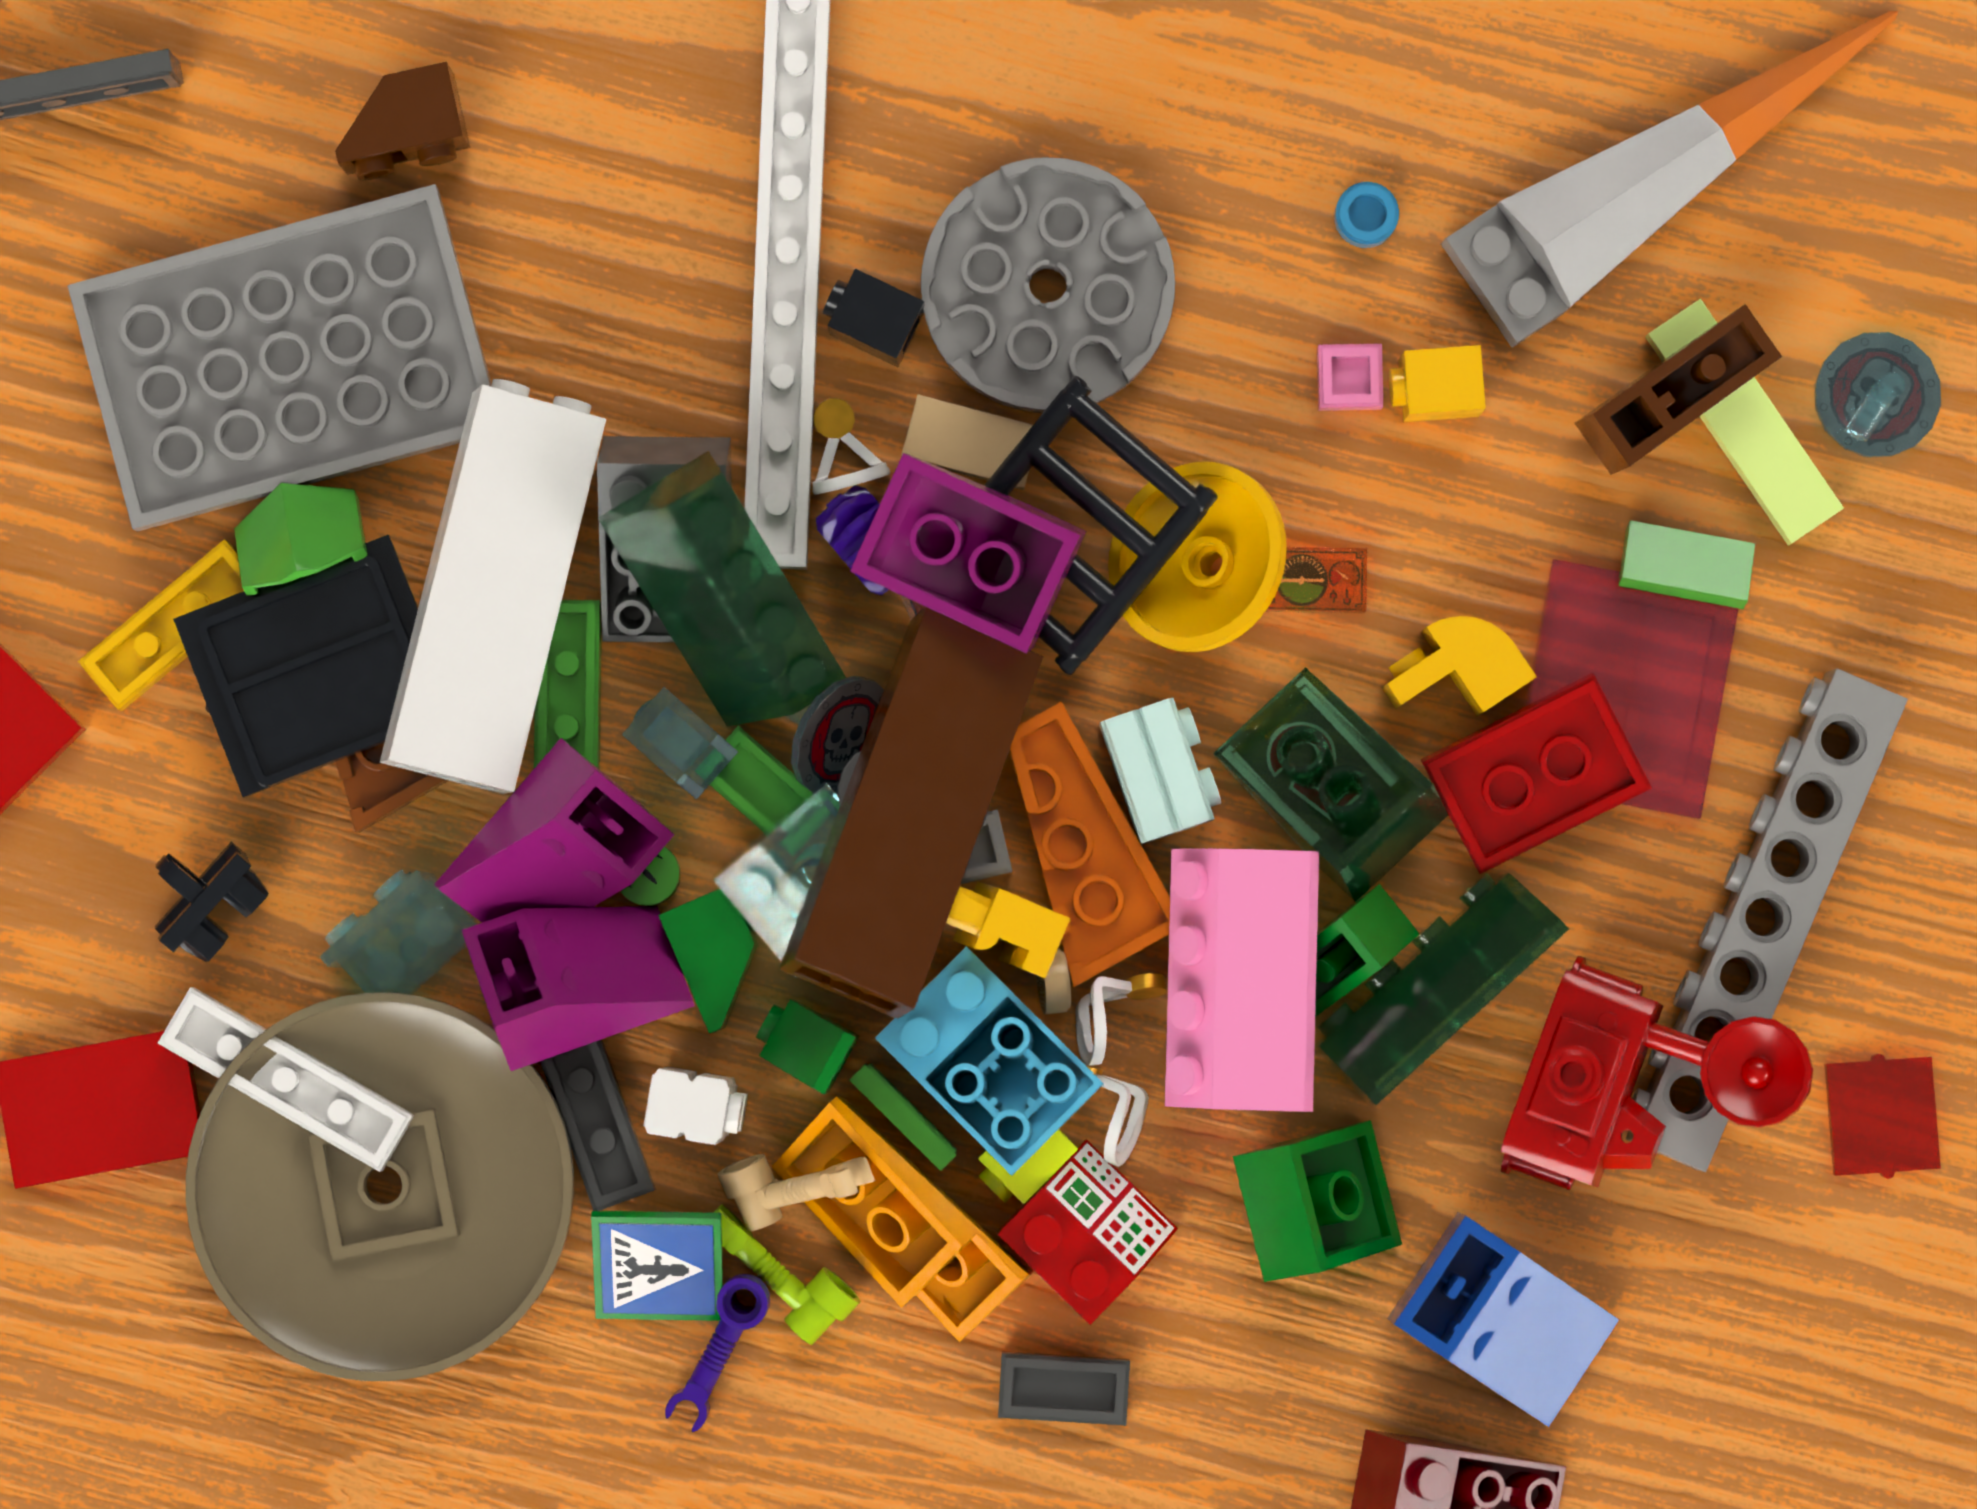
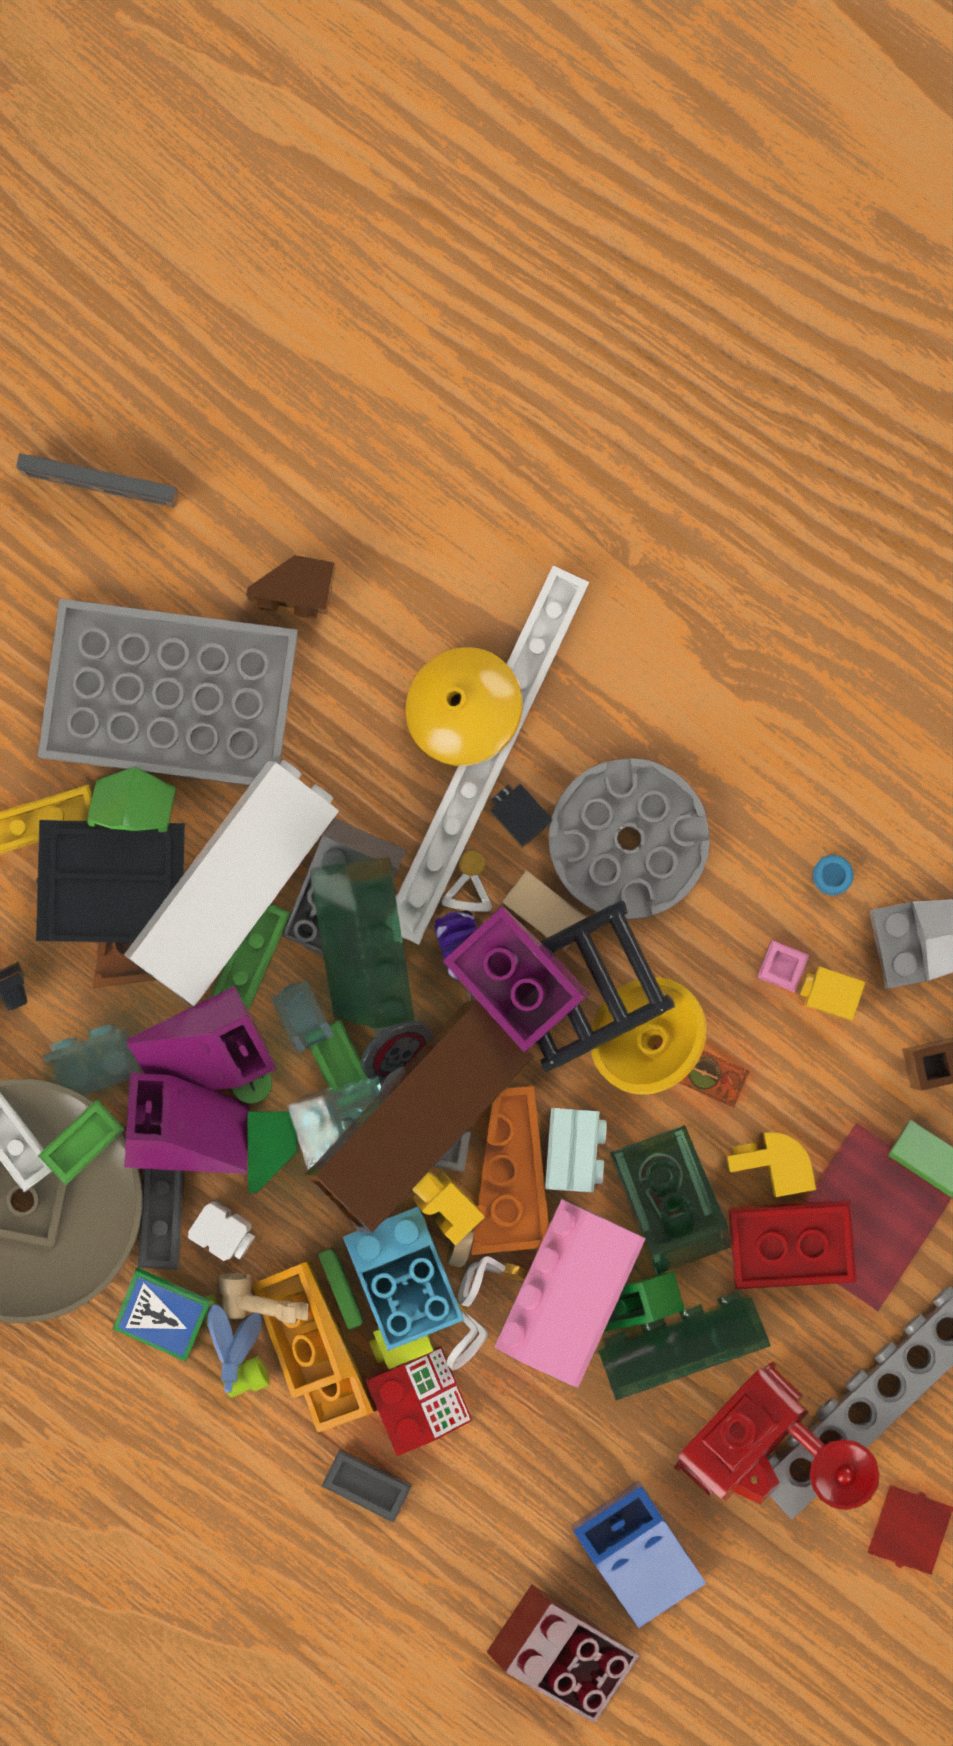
camera: 20 degrees right, 0 degrees up
(433, 1061) = (81, 1142): none -> bright green tile
(734, 1319) = (192, 1364): dark purple brick -> none
(759, 201) = (480, 722): none -> yellow dish
(782, 1271) = (232, 1348): none -> medium blue piece
(806, 1044) = (301, 1223): green slope -> none
(1317, 1201) = (559, 1440): green slope -> none

